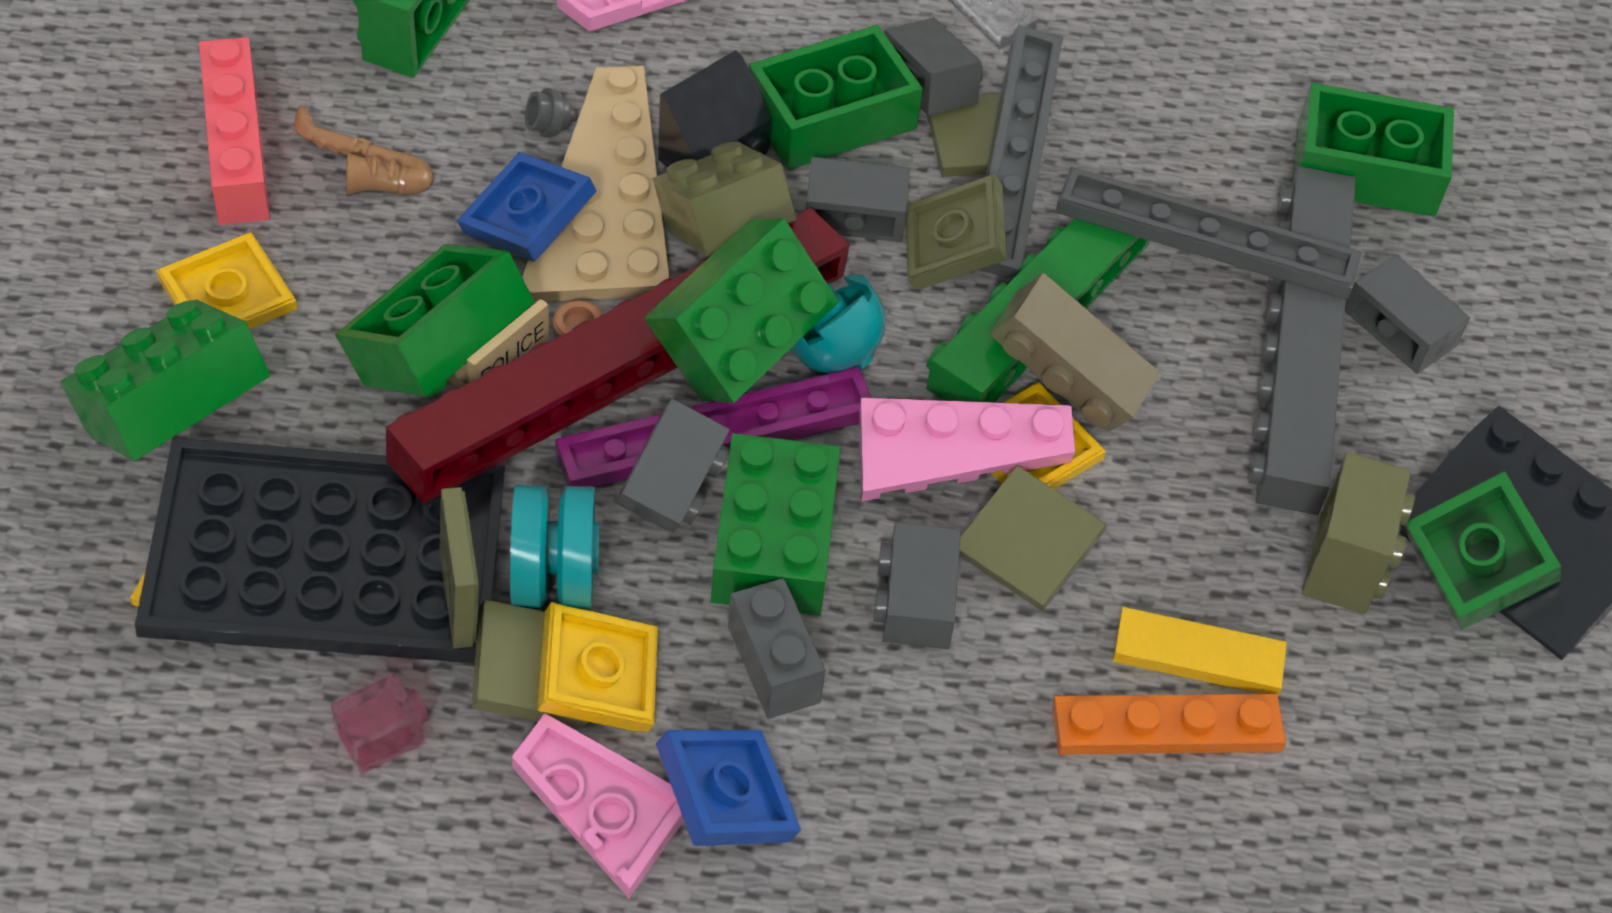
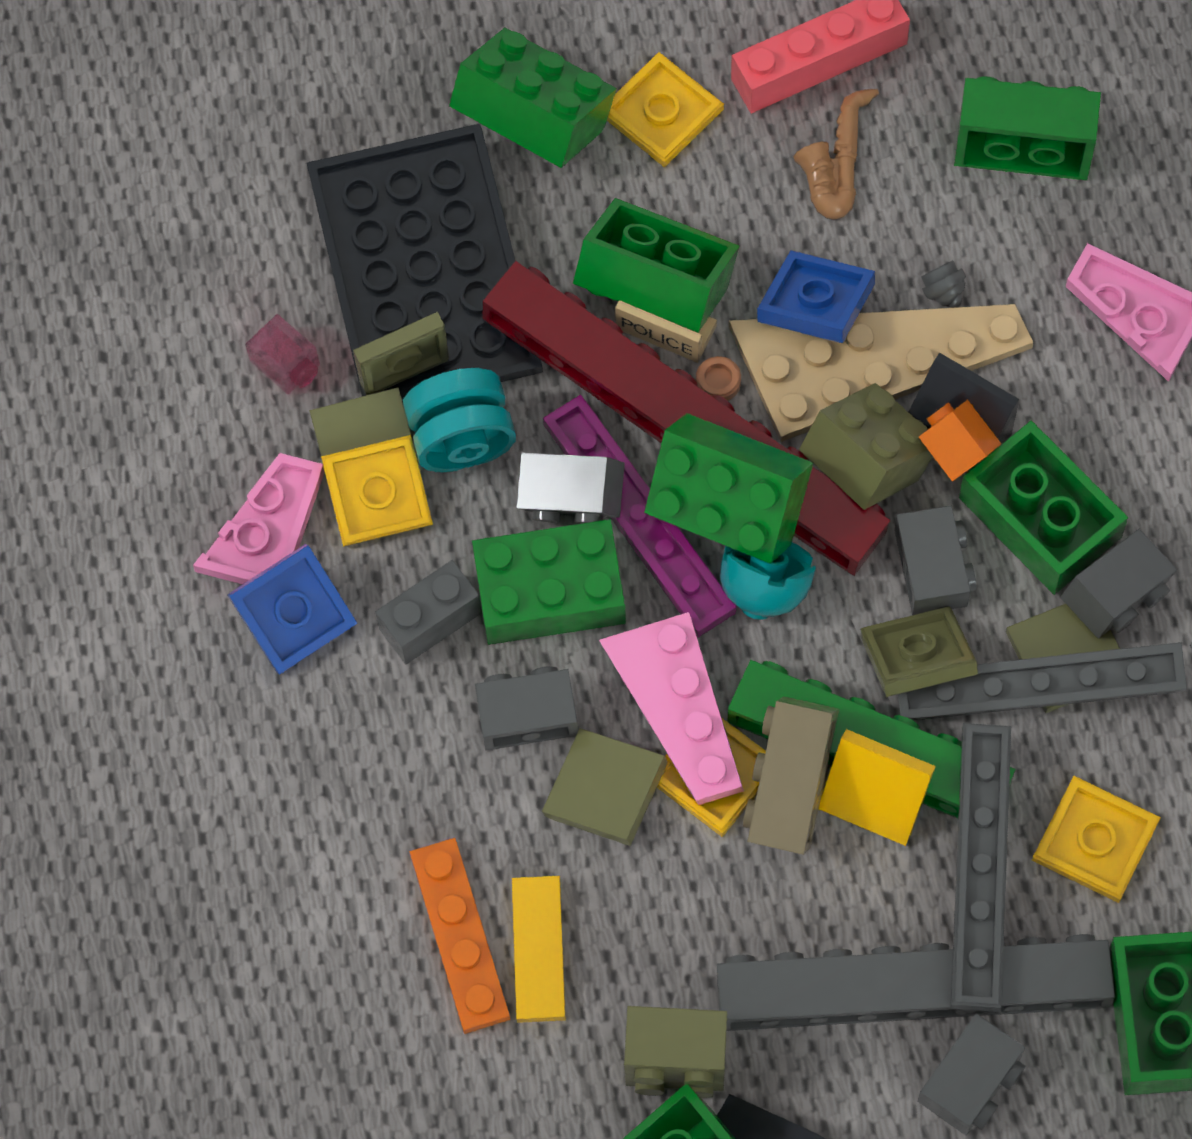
camera: 85 degrees right, 15 degrees up
(754, 115) = (958, 438): none -> orange brick
(1106, 282) = (876, 787): none -> yellow tile
(1177, 162) = (1096, 839): none -> yellow tile

